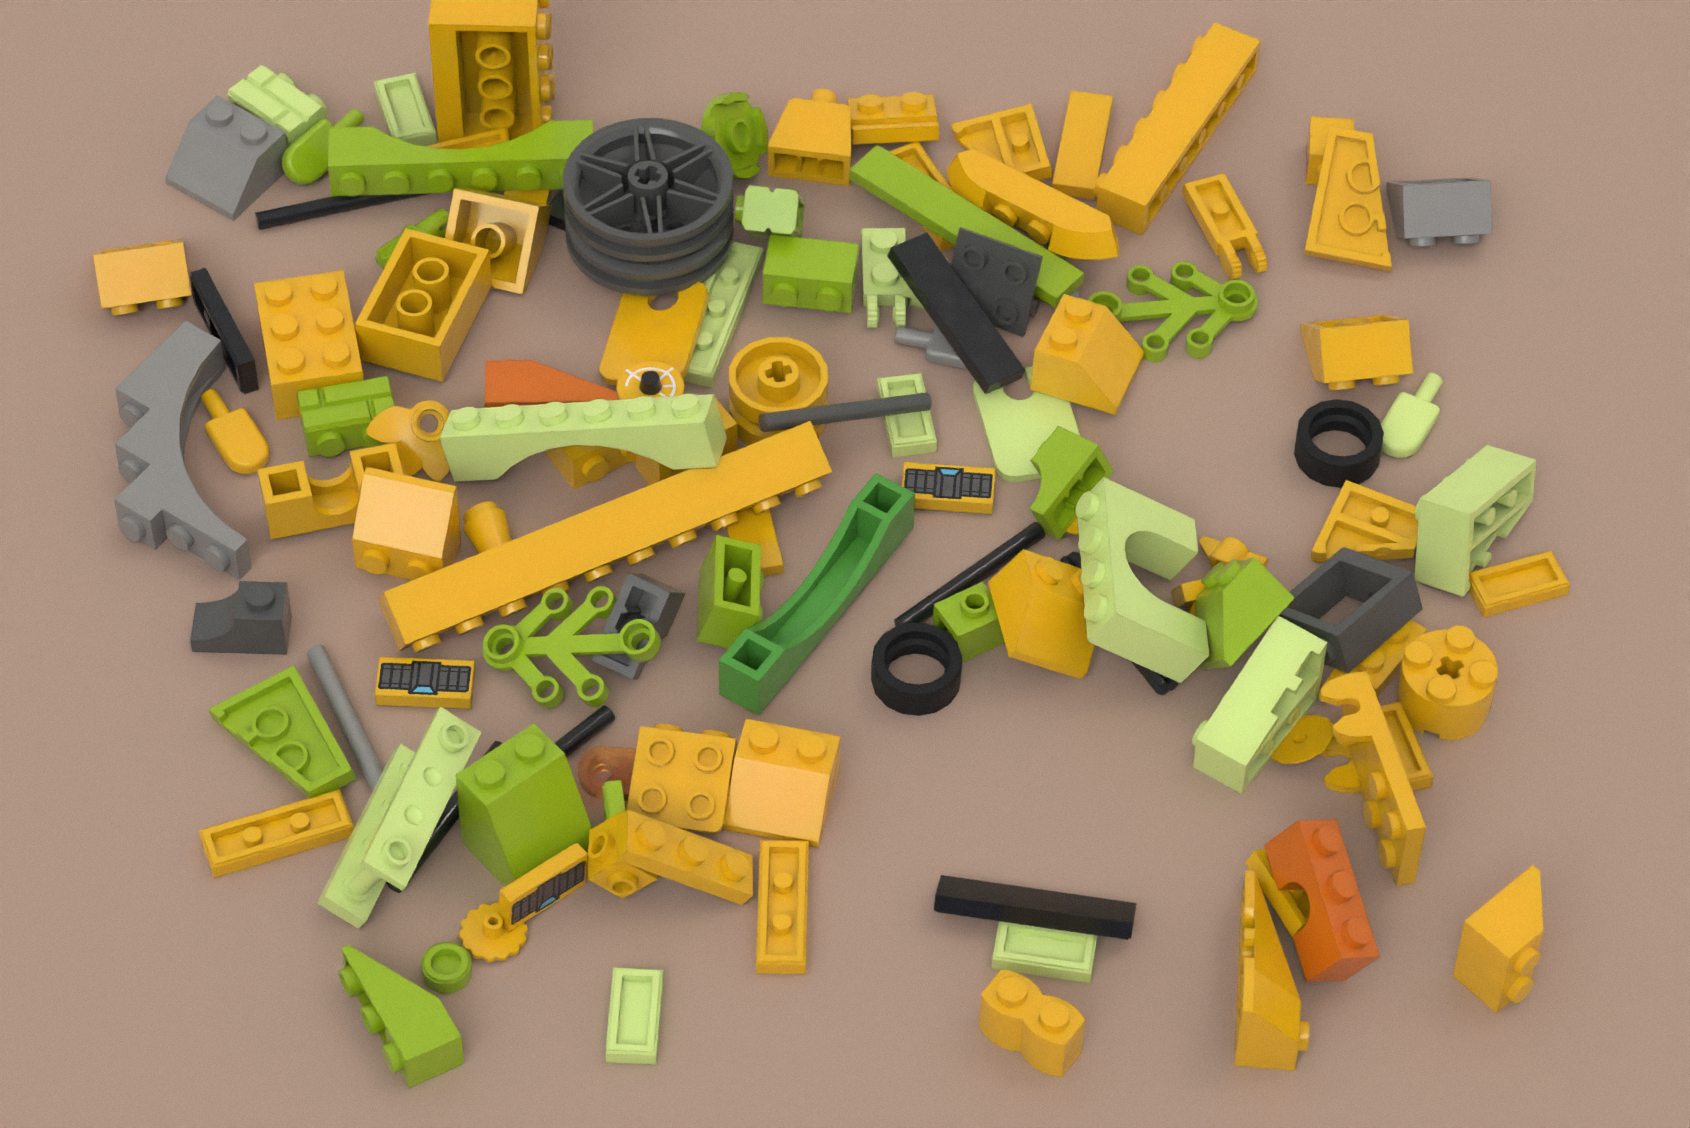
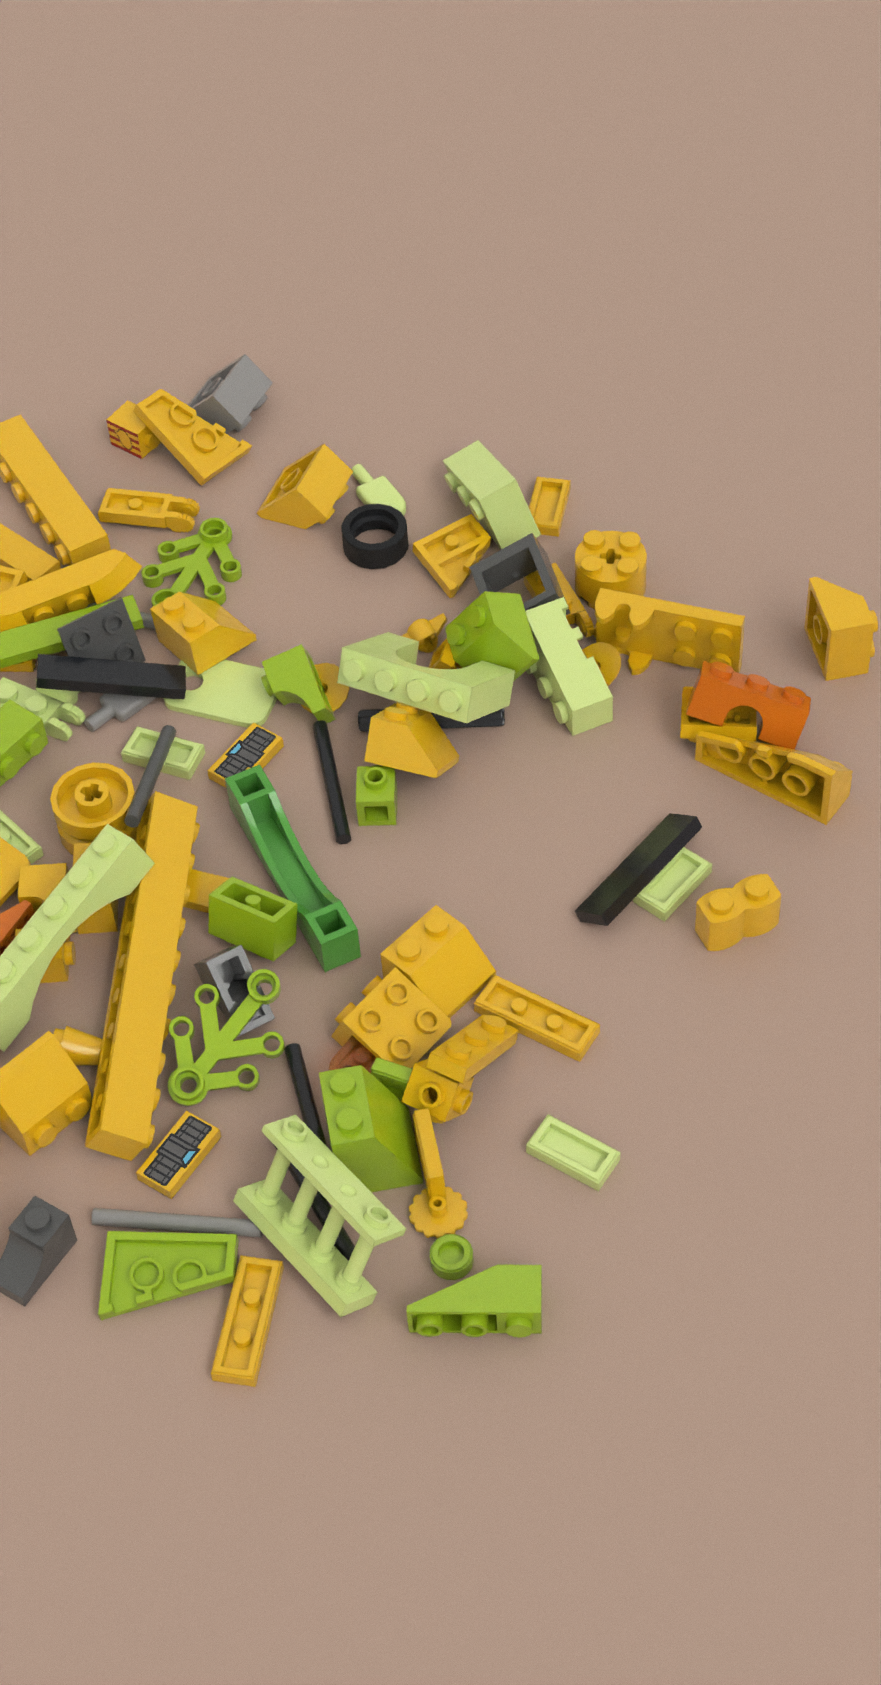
camera: 55 degrees left, 0 degrees up
(650, 380) = (32, 879): piece -> none
(923, 640) = (391, 821): black tyre -> none

